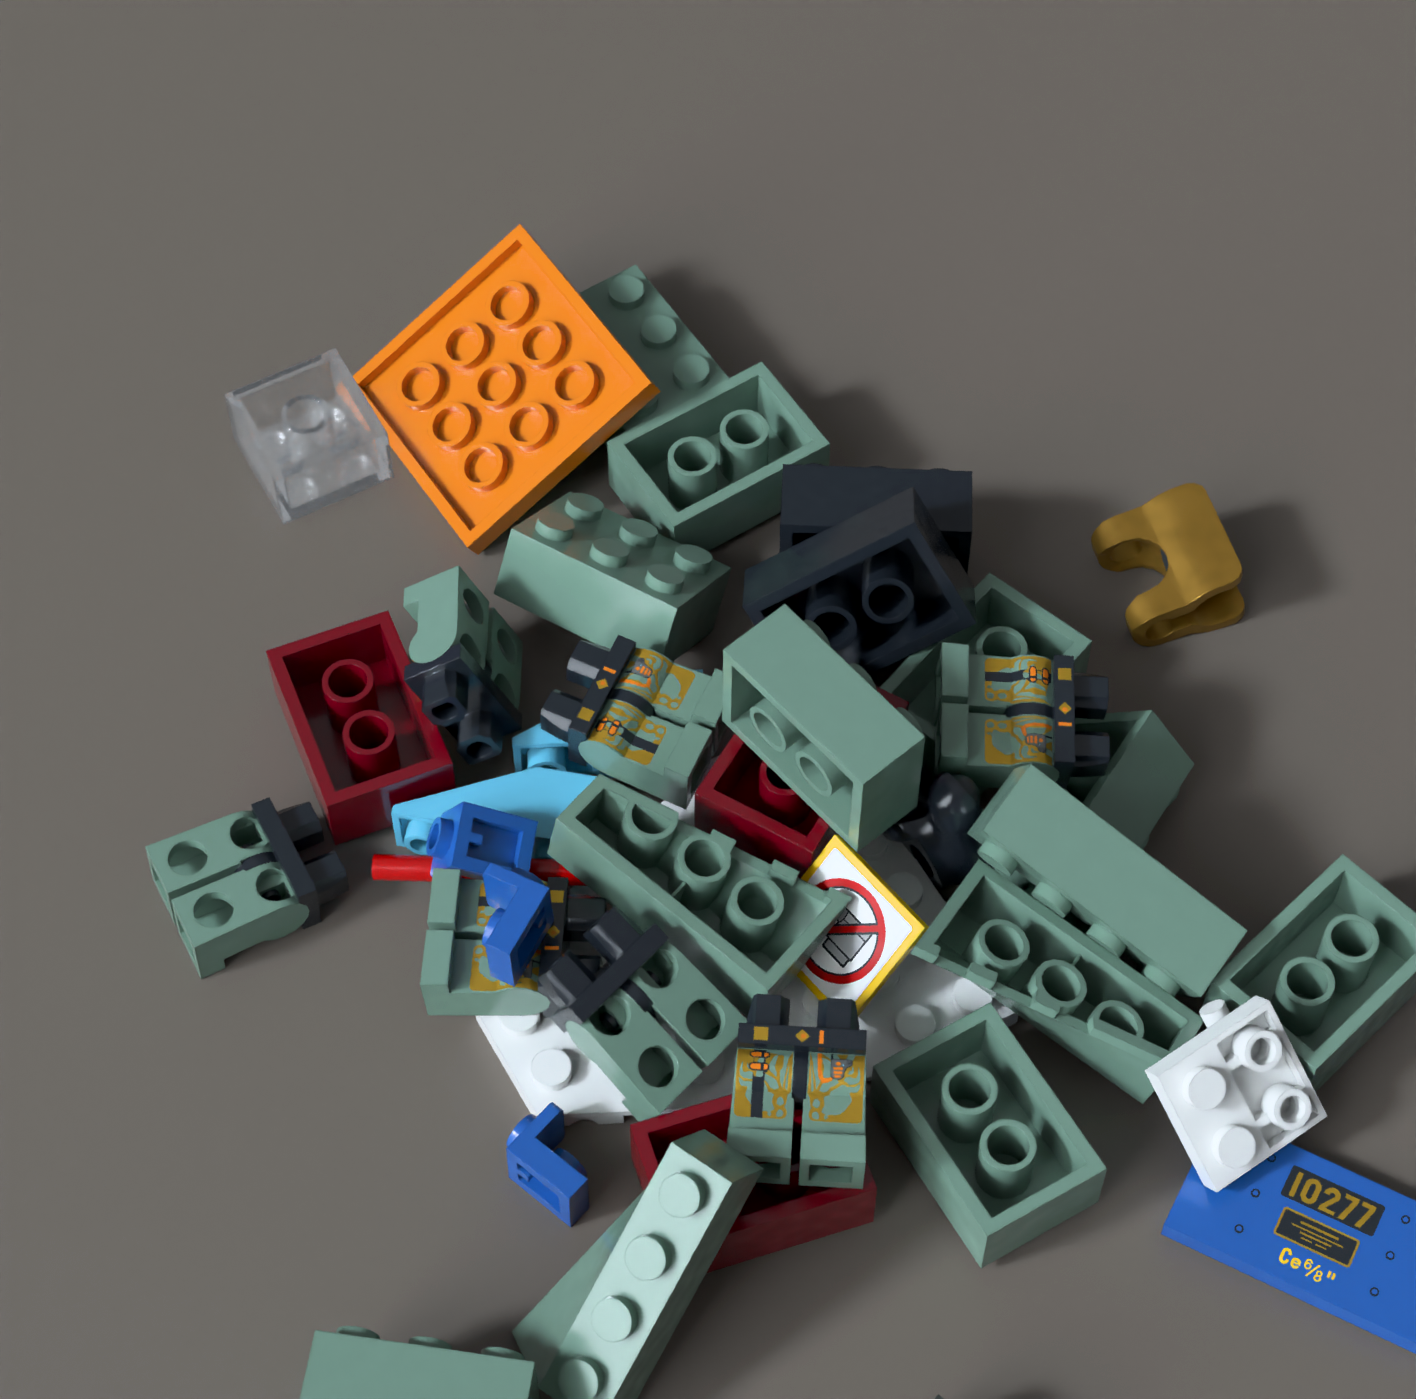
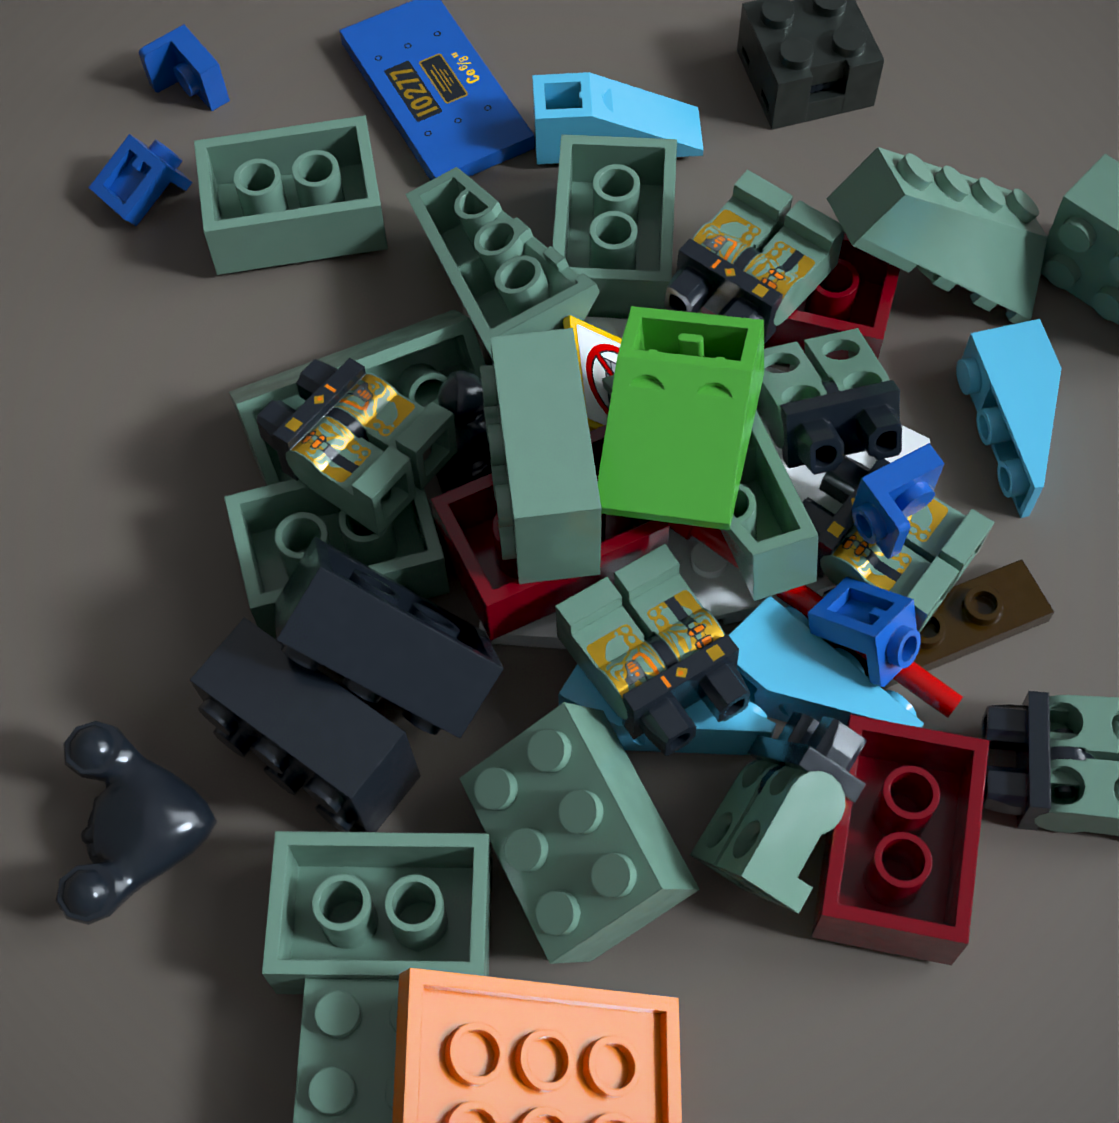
camera: 145 degrees left, 5 degrees up
(388, 991) = (981, 615): none -> dark brown plate
(483, 1211) = (1015, 394): none -> medium azure slope
(548, 1176) = (947, 393): blue bracket -> none
(739, 844) = (681, 416): none -> bright green slope
(948, 426) = (136, 825): none -> black head
(1089, 1274) = (607, 107): none -> medium azure slope
(1105, 882) = (401, 285): sand green wedge -> none
(1189, 546) = (58, 552): pearl gold piece -> none
(1235, 1091) = (406, 135): white plate -> none

